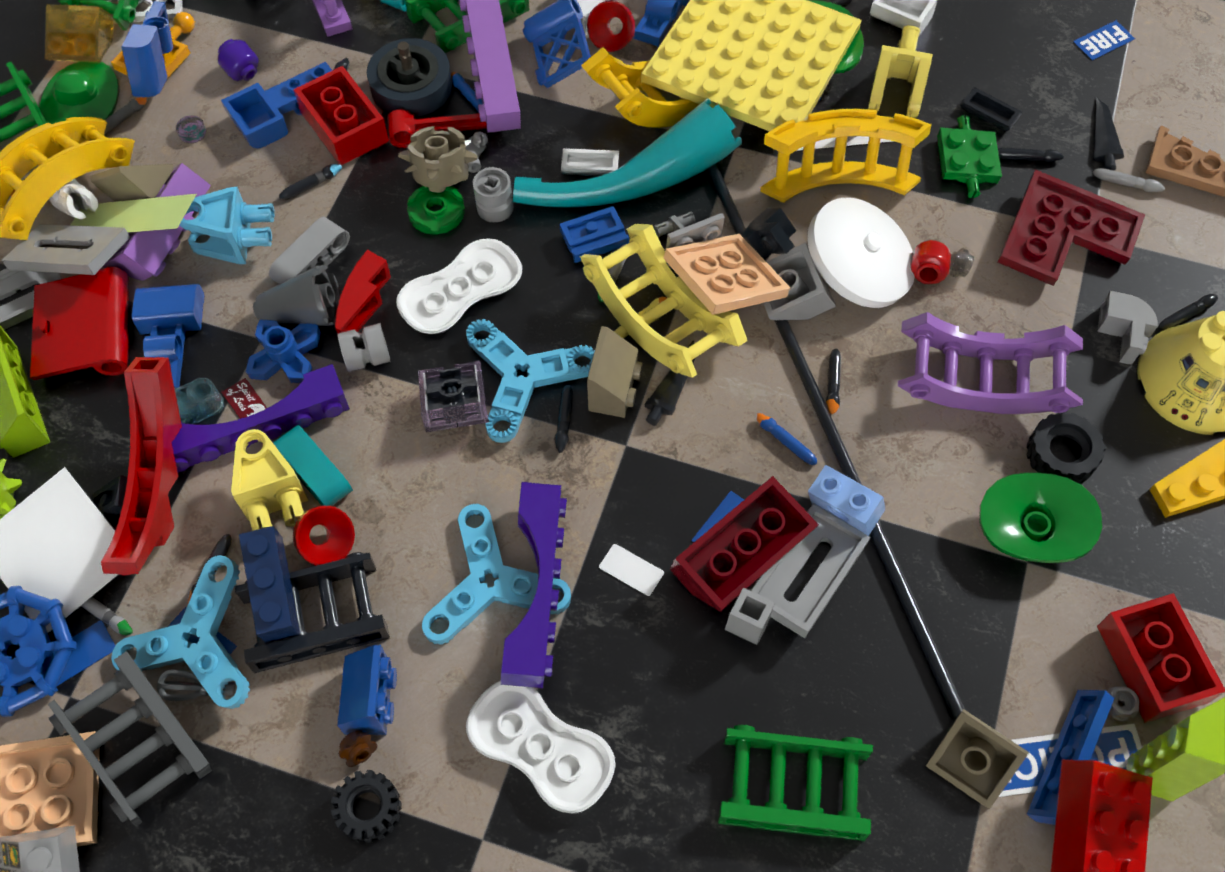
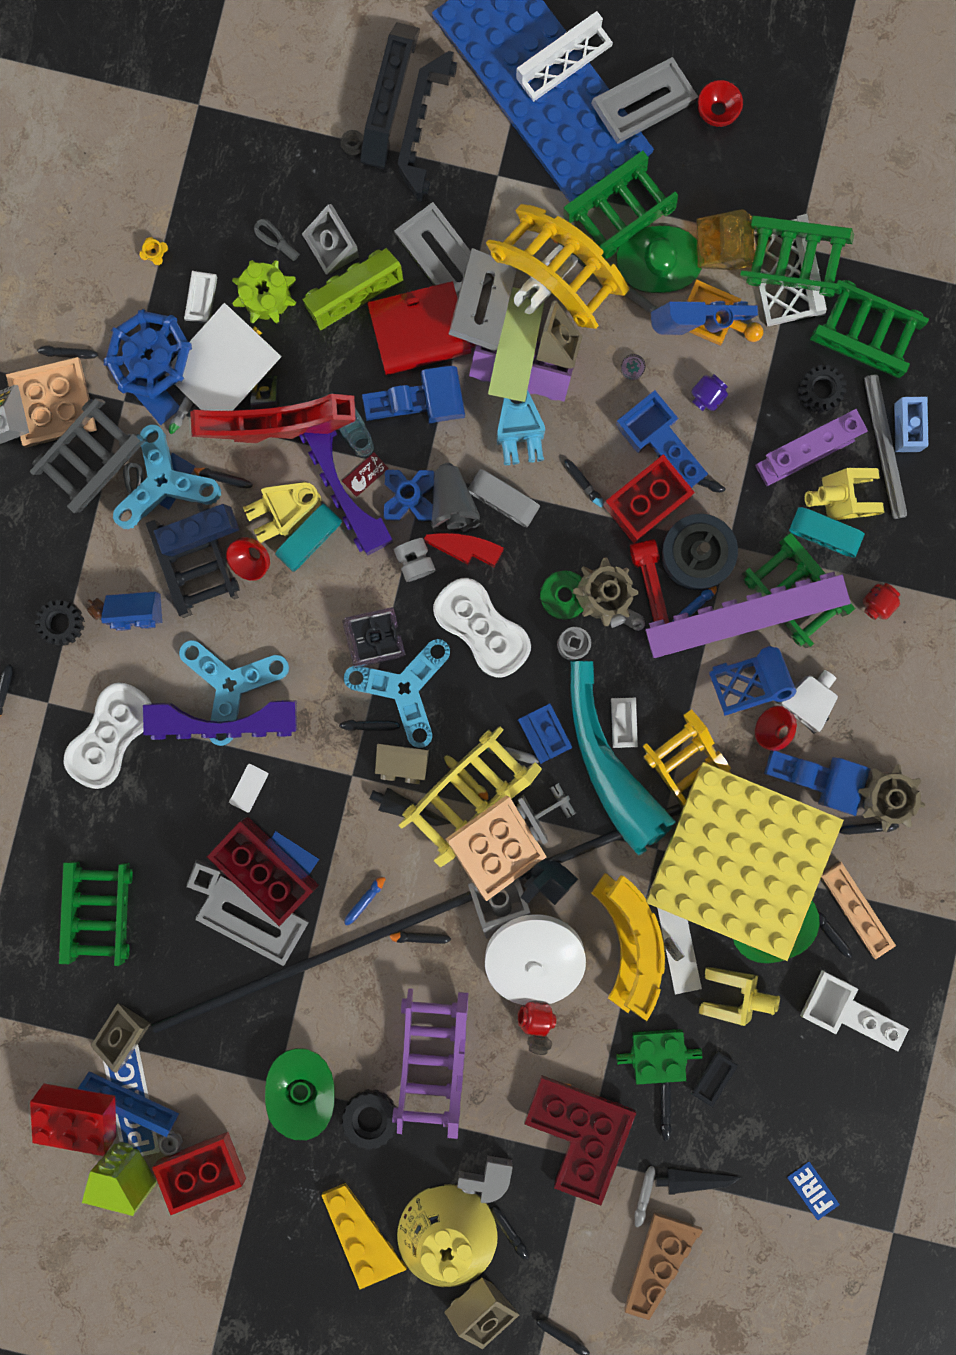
camera: 80 degrees right, 25 degrees up
(847, 499) = (306, 948): light blue brick -> none

